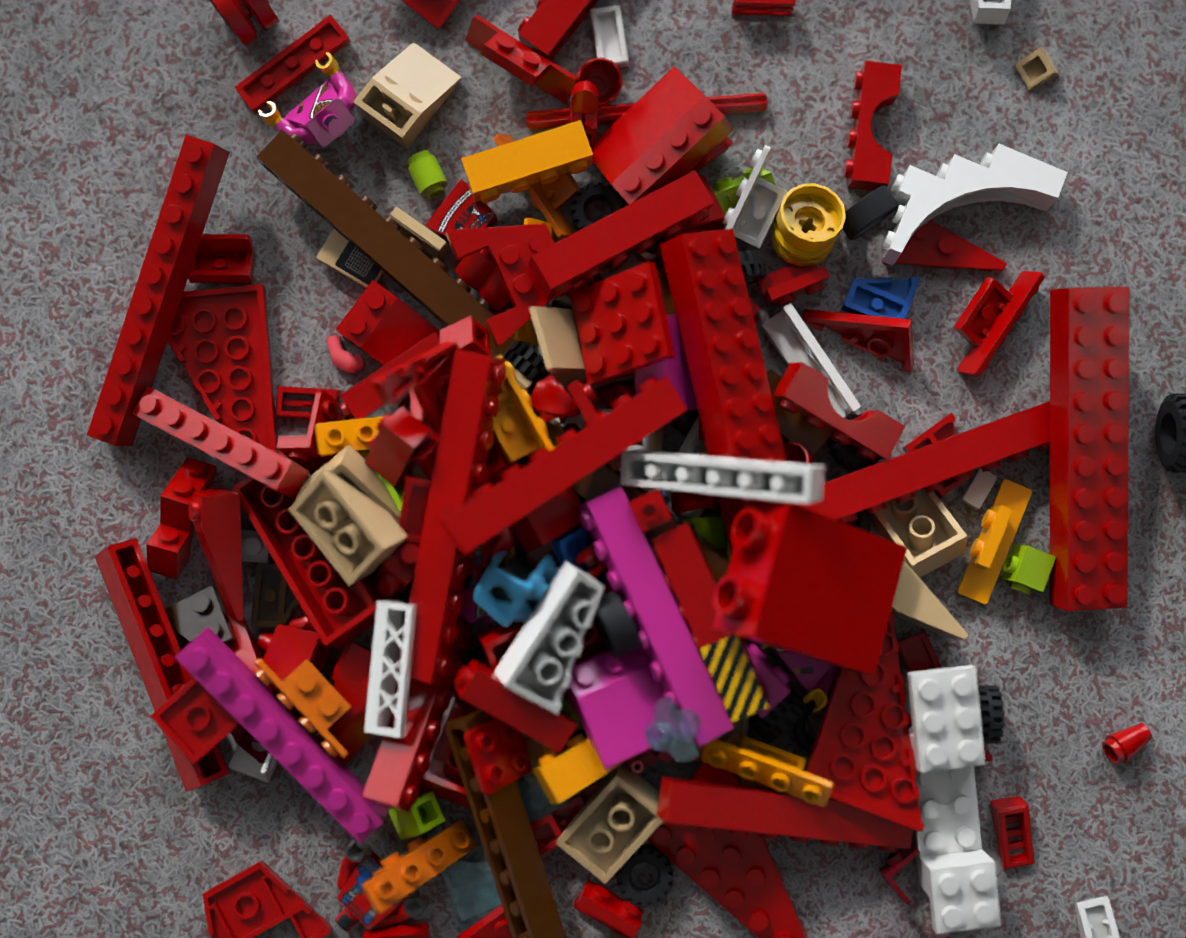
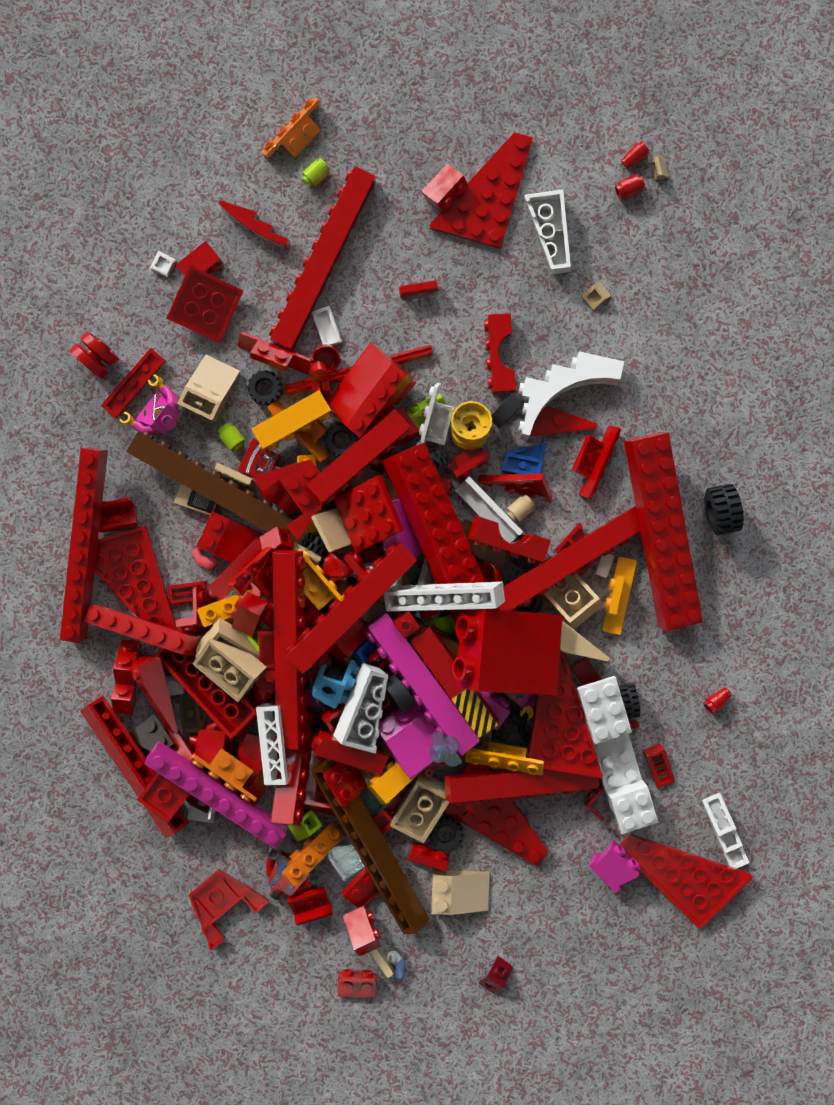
camera: 15 degrees left, 5 degrees up
(491, 92) = (261, 376): none -> black tyre
(862, 371) = (520, 508): none -> tan brick
(1027, 569) = (641, 609): lime brick -> none

